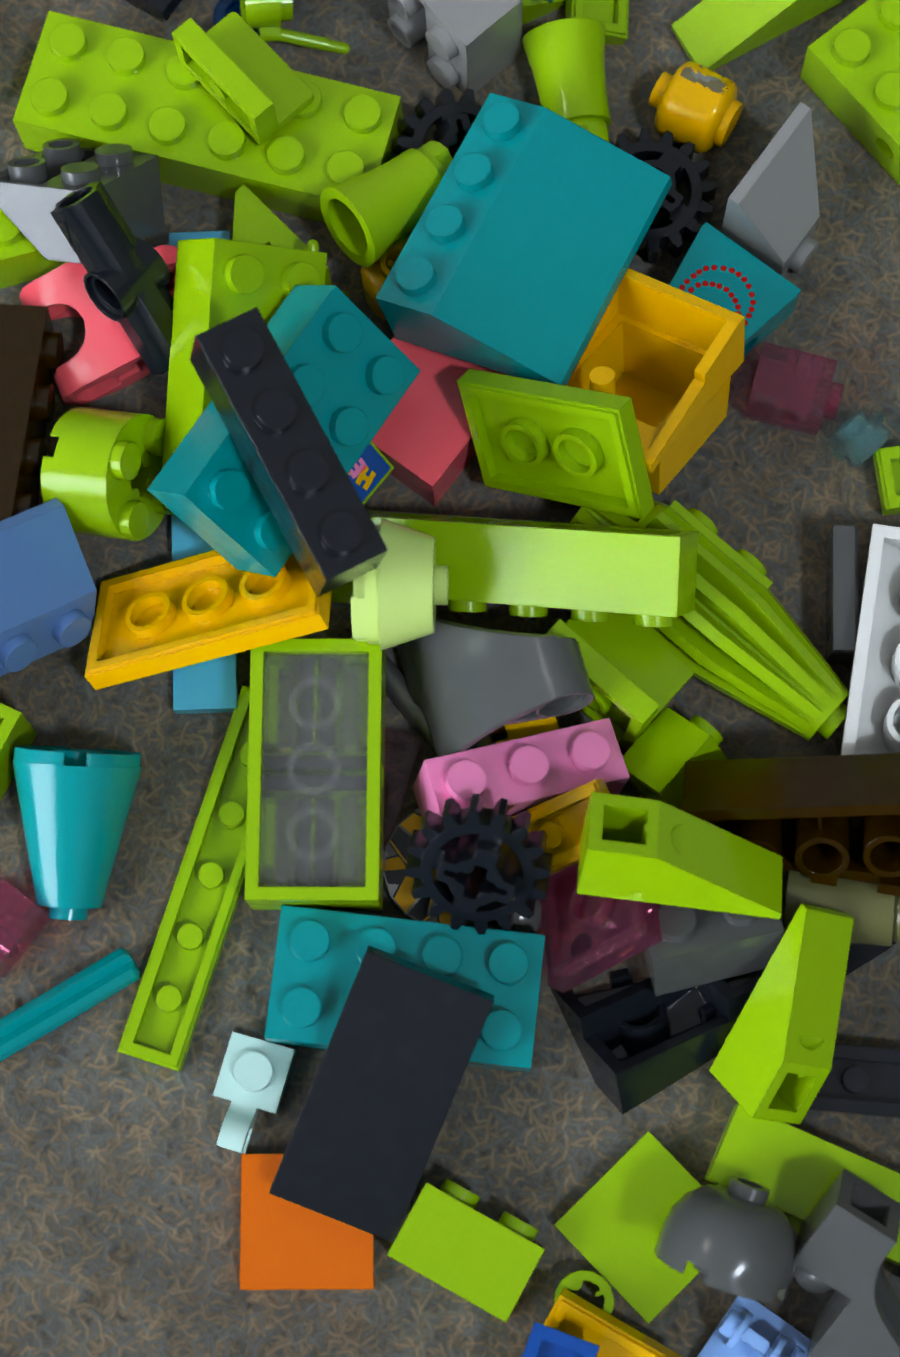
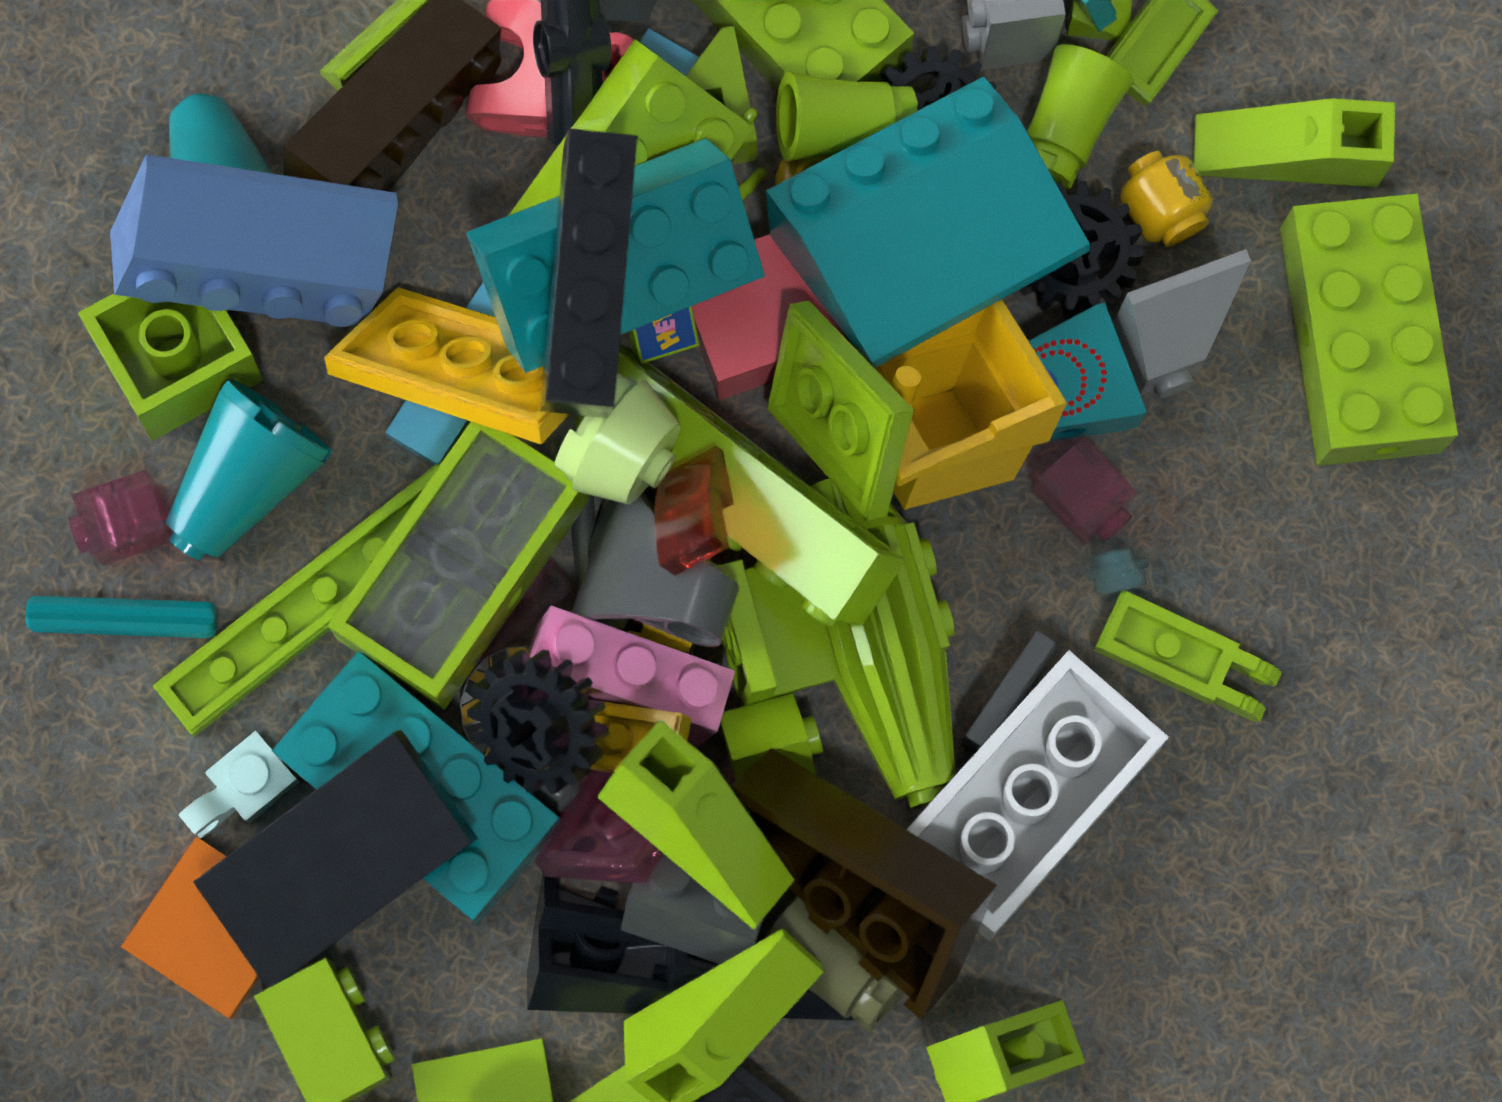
camera: 25 degrees right, 0 degrees up
(105, 471) = (450, 191): lime brick -> none
(496, 603) = (691, 511): none -> clear red slope

